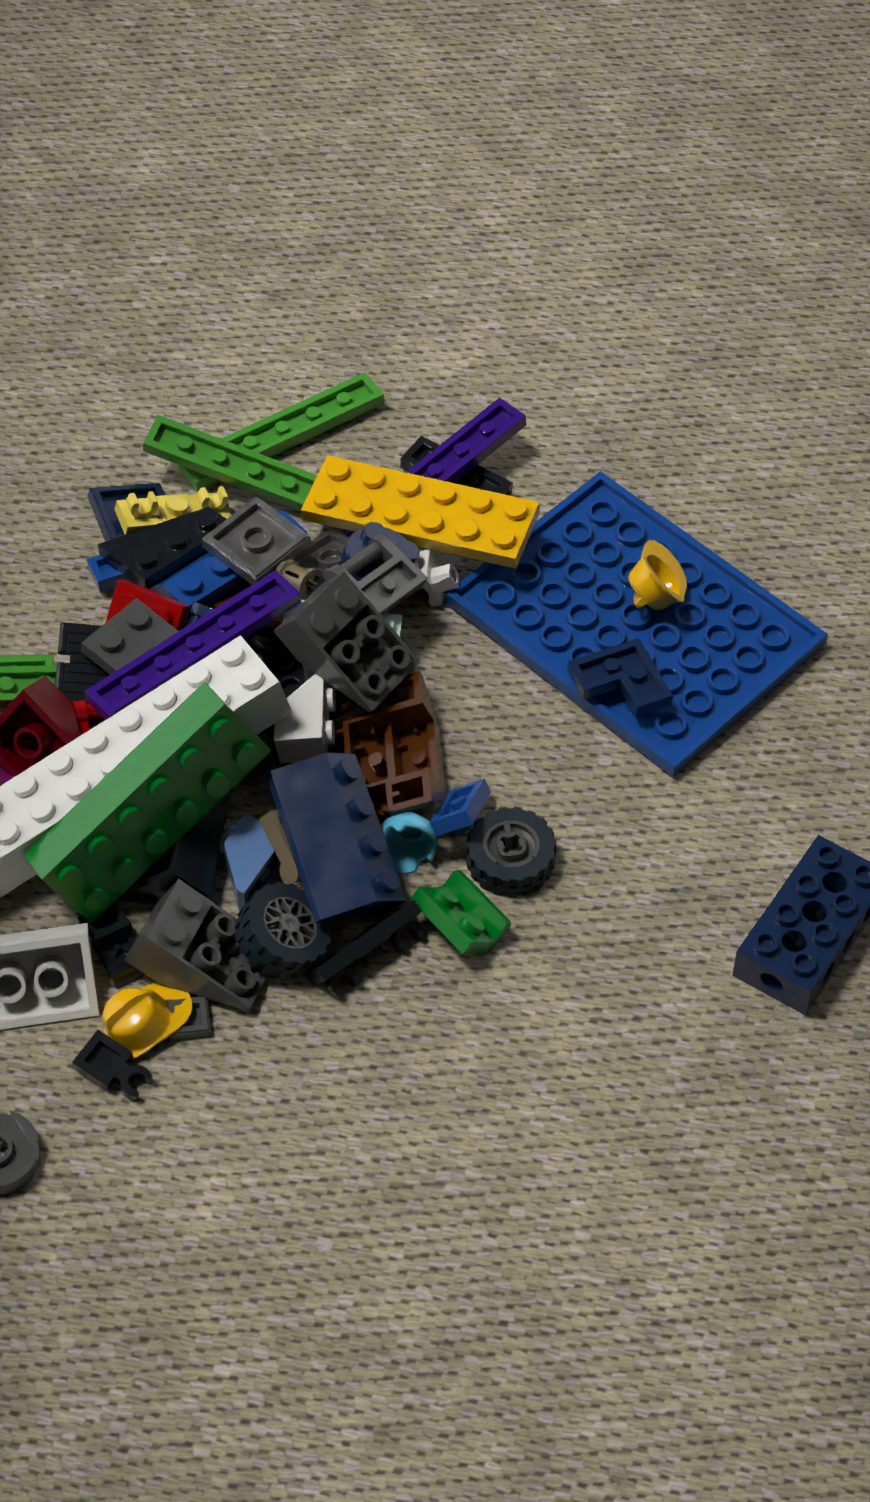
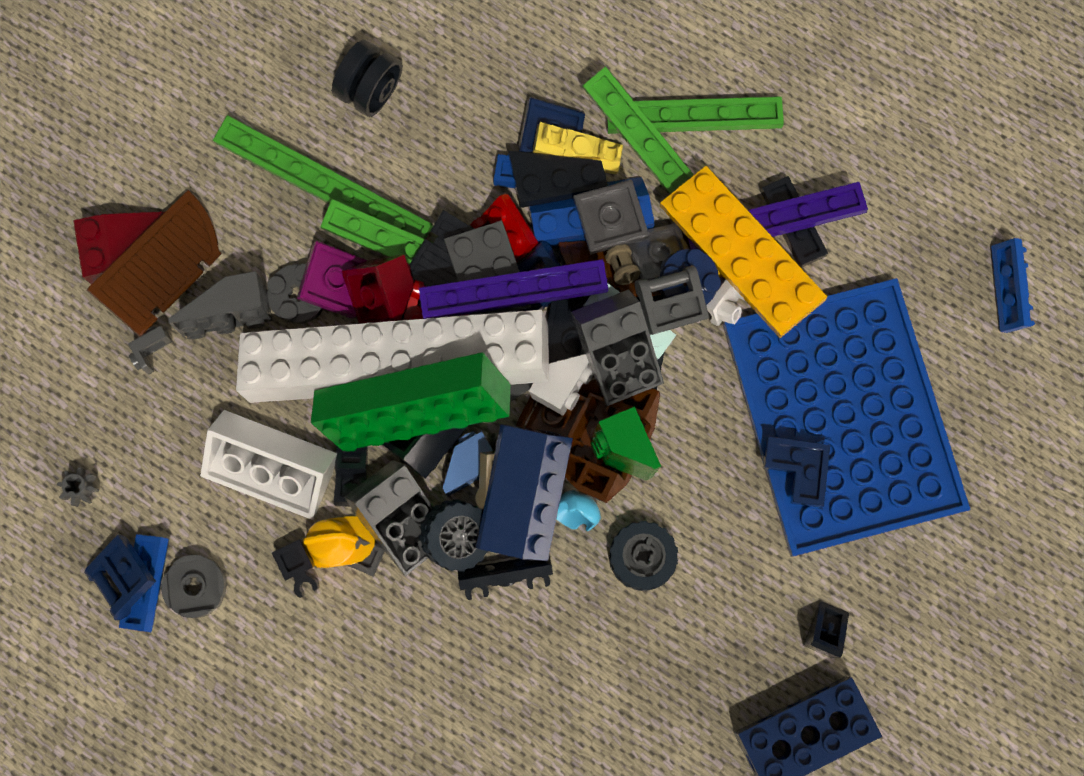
camera: 30 degrees right, 25 degrees up
(421, 721) = (625, 445): none -> green slope
(460, 808) = (627, 508): blue plate -> none
(463, 914) = (579, 588): green bracket -> none
(657, 578) = (876, 403): yellow piece -> none
(722, 425) = (1011, 285): none -> blue plate
(764, 824) = (827, 631): none -> black slope

